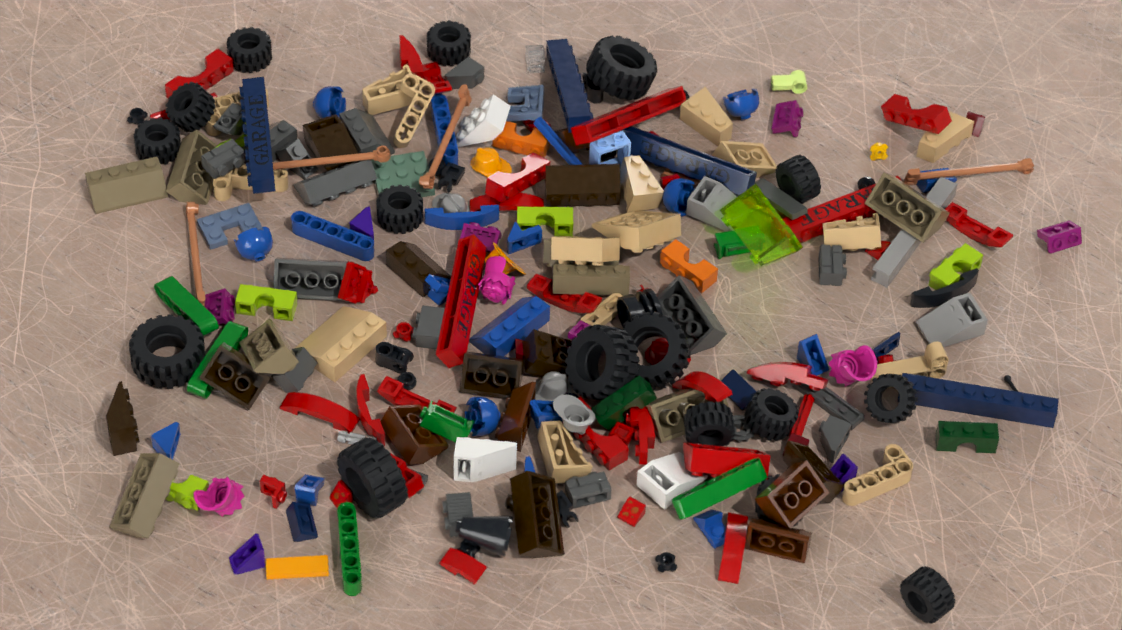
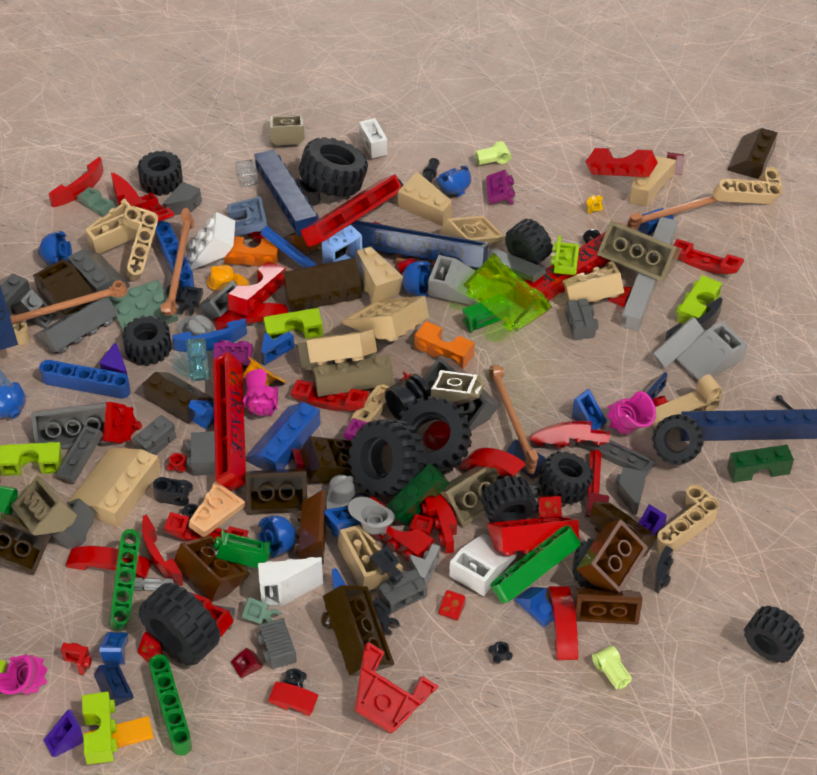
camera: 10 degrees left, 0 degrees up
(279, 570) = (99, 745): none -> lime arch
(312, 306) = (79, 454): none -> dark grey plate
(330, 438) = (120, 588): none -> green beam
(366, 44) = (63, 195): none -> red slope
(378, 61) = (94, 201): none -> sand green slope
(388, 302) = (155, 436): none -> dark grey brick
(427, 526) = (246, 663): none -> dark red slope
(429, 382) = (216, 509): none -> light nougat wing
(444, 236) = (197, 359): none -> clear light blue brick
(448, 482) = (258, 611): none -> sand green plate
(475, 185) = (217, 303): none -> dark grey brick
(486, 532) = (311, 658): black cone -> none
(544, 582) = (383, 700): none -> red wing
(577, 459) = (386, 561): none -> black plate
(586, 20) = (287, 129): none -> dark tan slope
(617, 471) = (427, 565): none -> light grey slope
(671, 44) = (373, 138): none -> white brick
(686, 308) = (457, 387): none -> dark tan slope
(720, 88) = (431, 170): none -> black pin
(732, 303) = (496, 374): none -> nougat hinge
(748, 438) = (550, 506): none -> red slope
(766, 591) = (610, 663): none -> yellowish green piece
(830, 200) = (565, 258): none -> lime bracket
(841, 517) = (662, 576): none -> black slope
(921, 305) = (678, 342): none -> light grey tile
(1018, 162) = (763, 191): none -> tan beam
(1060, 128) = (753, 153): none -> dark brown slope
(1061, 236) = (786, 252): magenta bracket -> none

